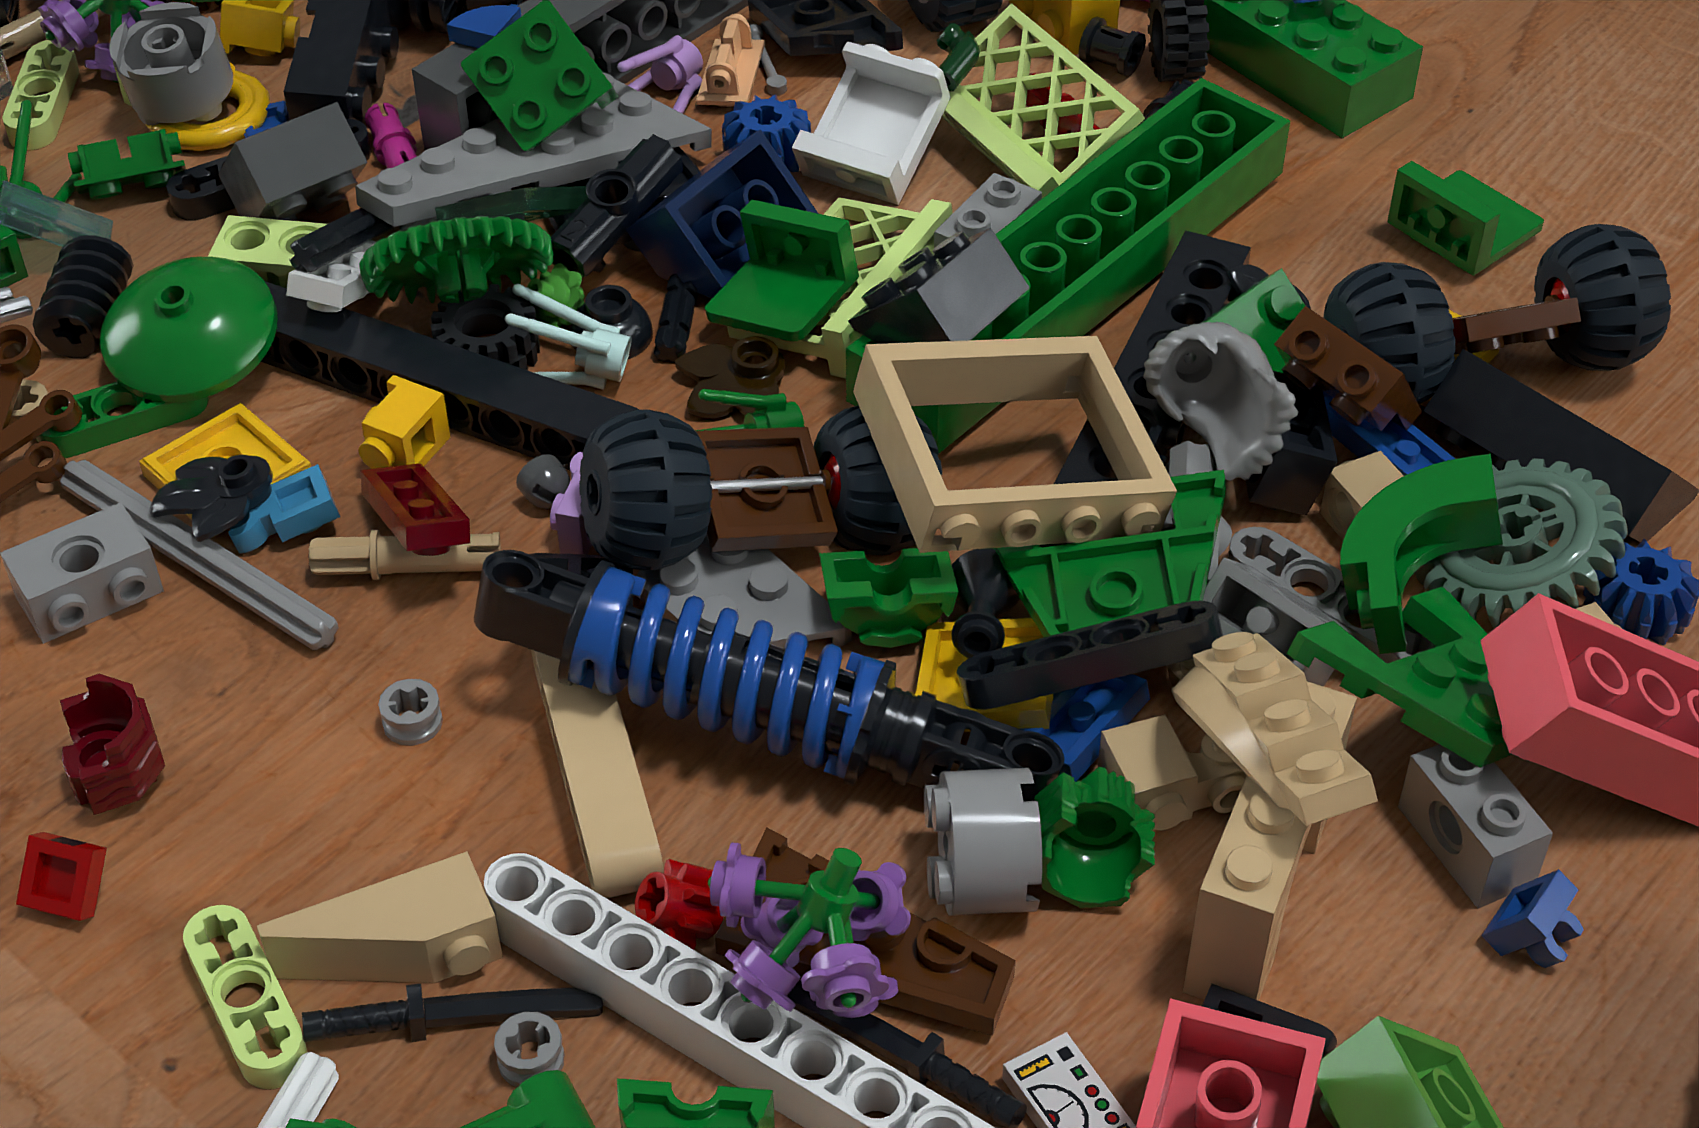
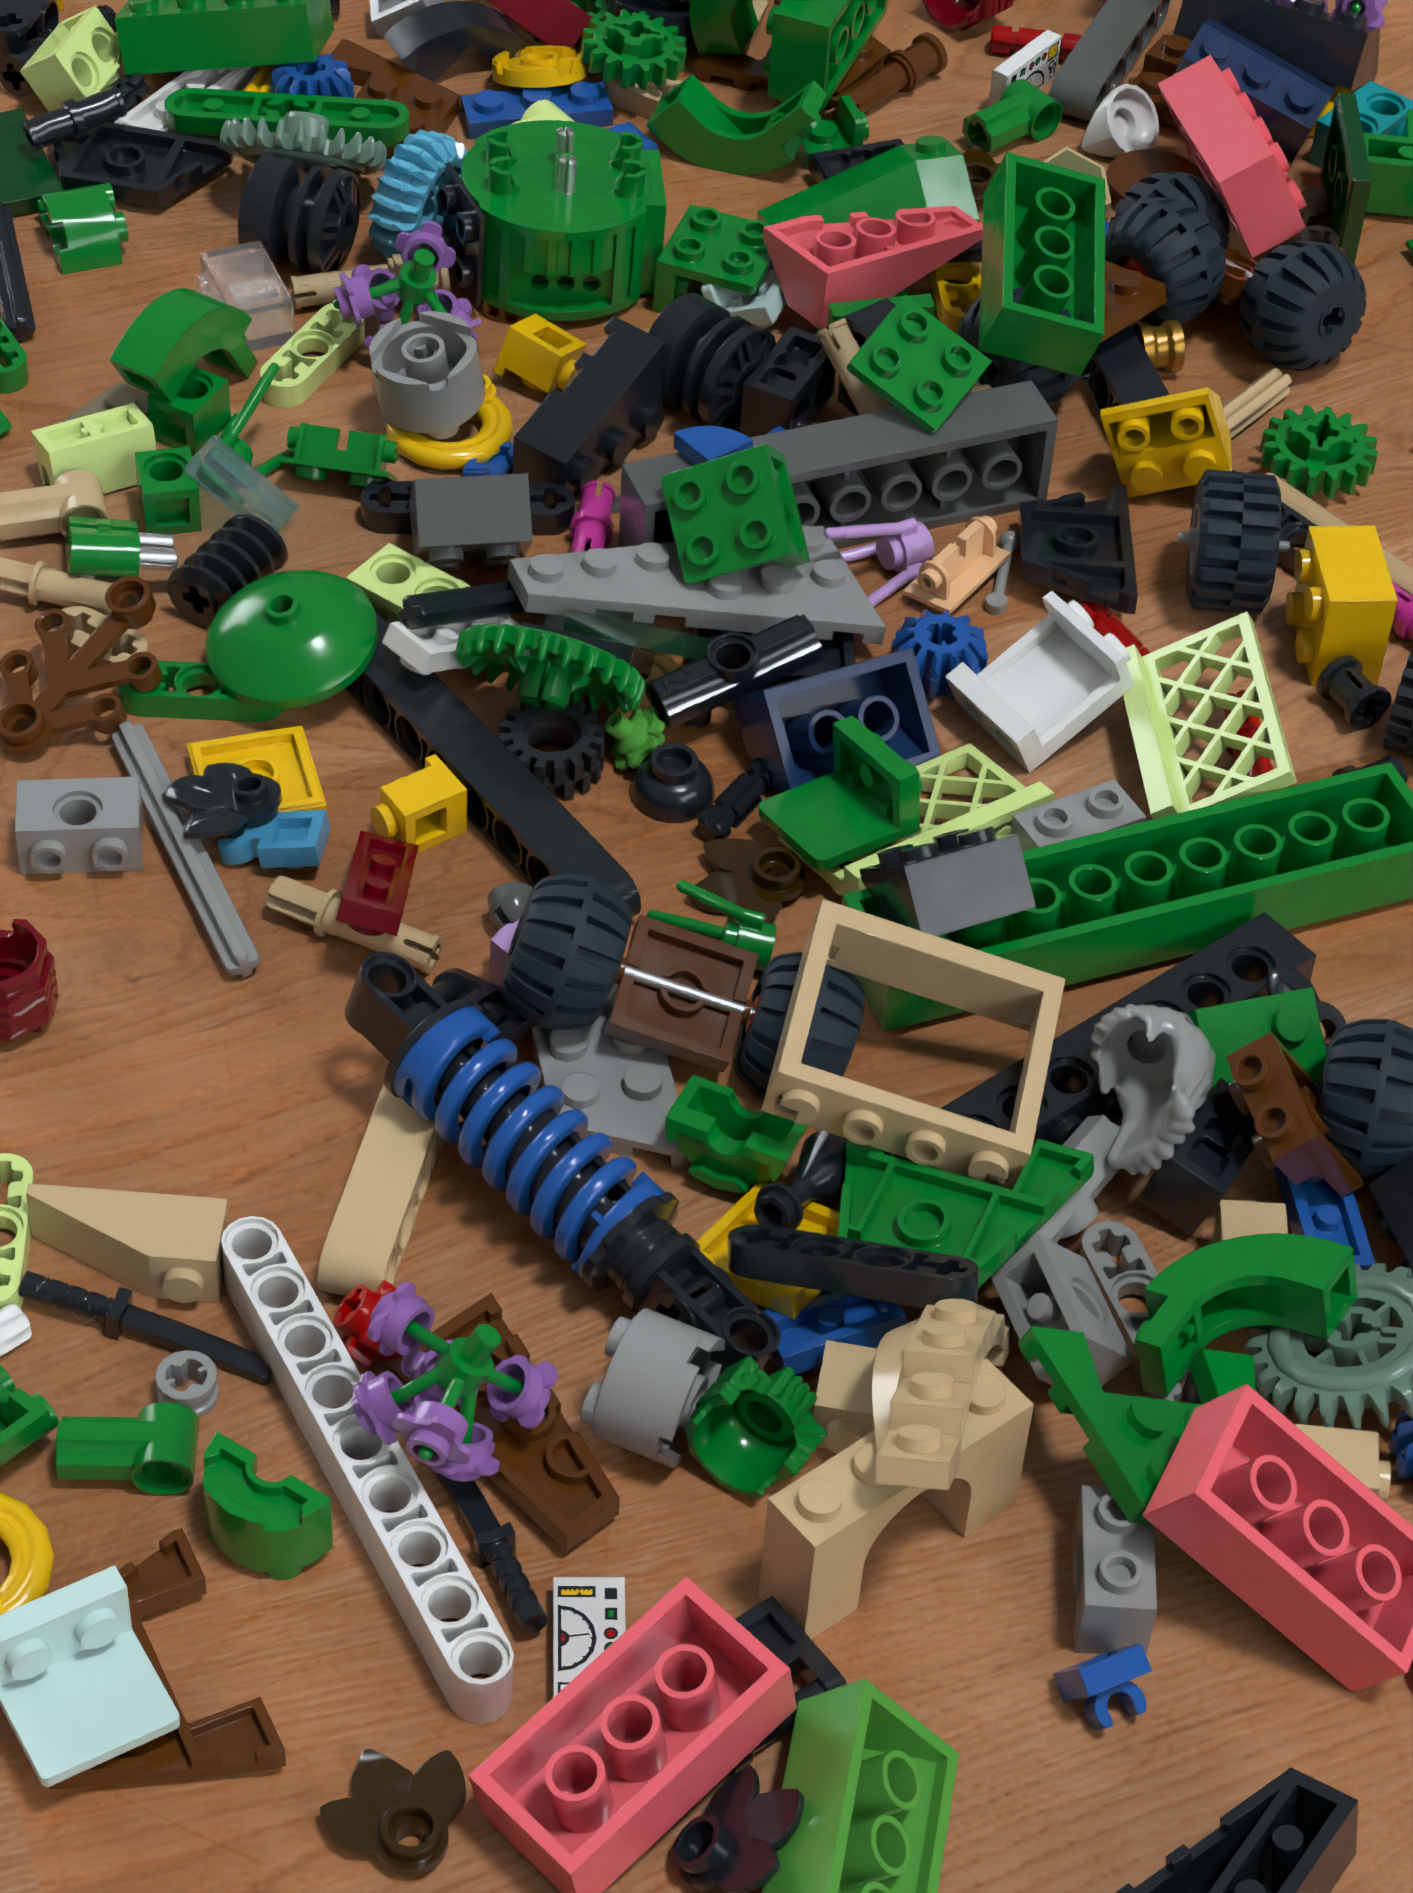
camera: 25 degrees right, 0 degrees up
(410, 727) = (285, 1055): light grey bush -> none
(600, 350) = (638, 808): light aqua plant -> none
(962, 55) = (1167, 648): dark green arm -> none

